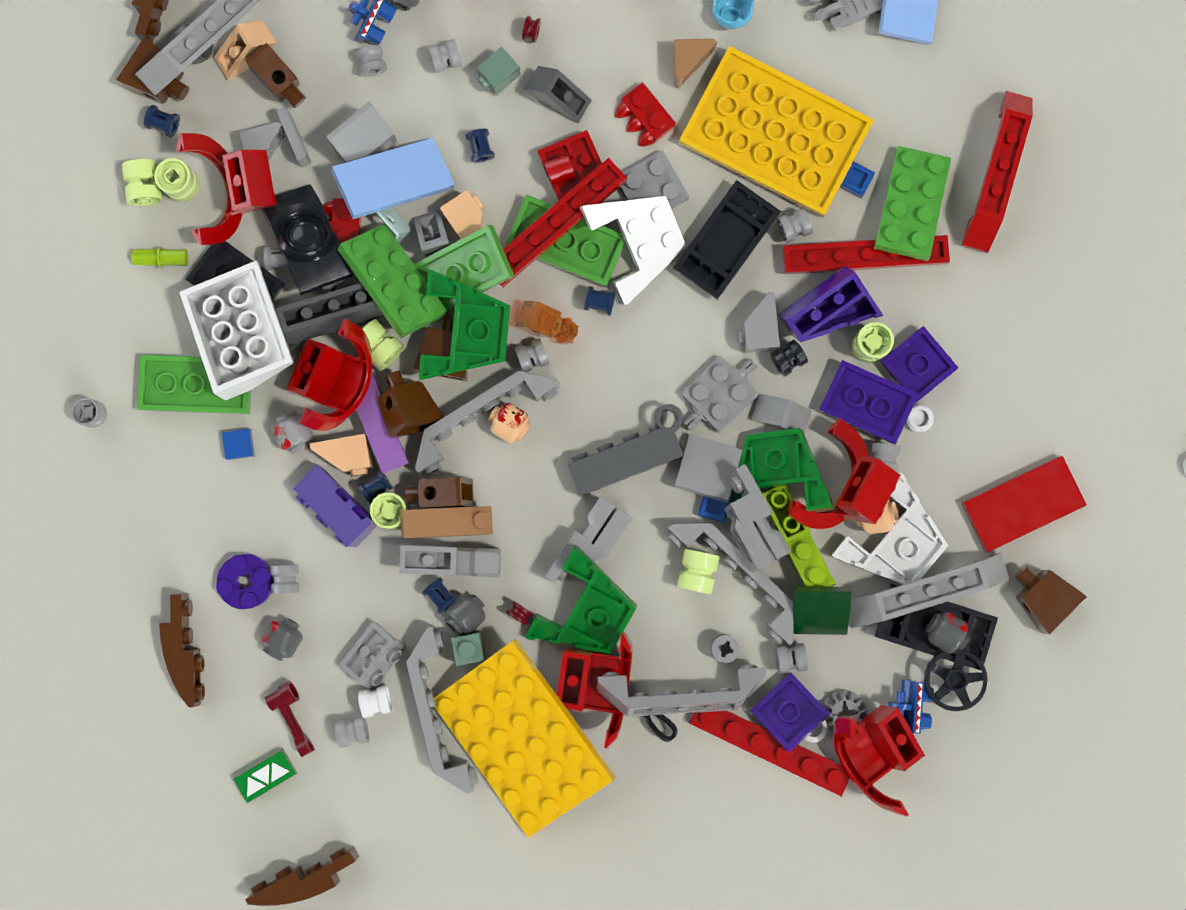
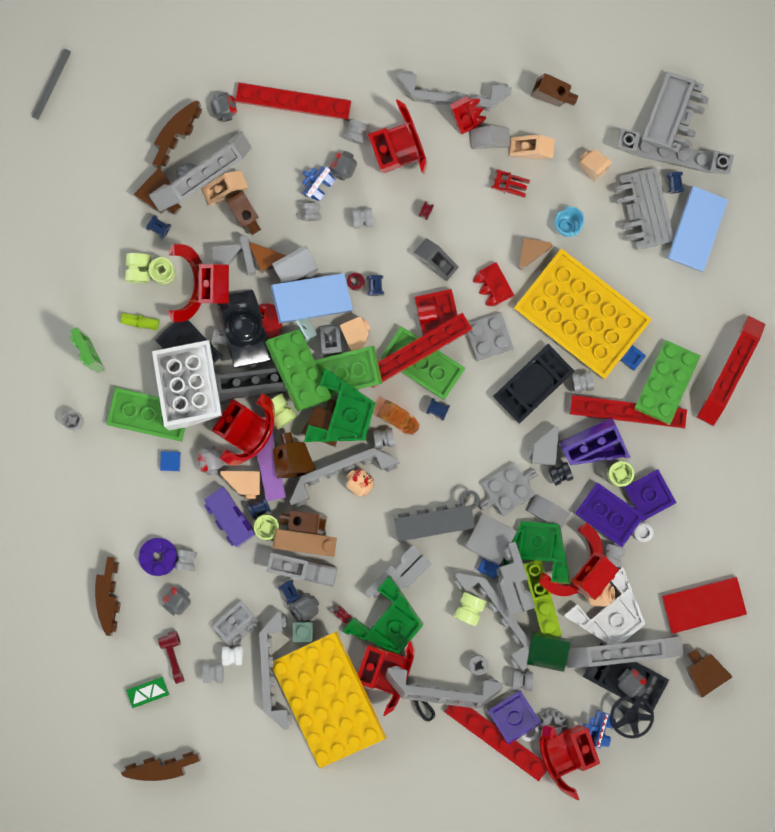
camera: 15 degrees right, 0 degrees up
(83, 306) = (88, 353): none -> bright green plate
(315, 134) = (265, 256): none -> dark orange slope
(459, 142) = (350, 283): none -> dark red bush
(498, 71) = (397, 236): sand green brick -> none
(649, 235) = (480, 368): white wing -> none

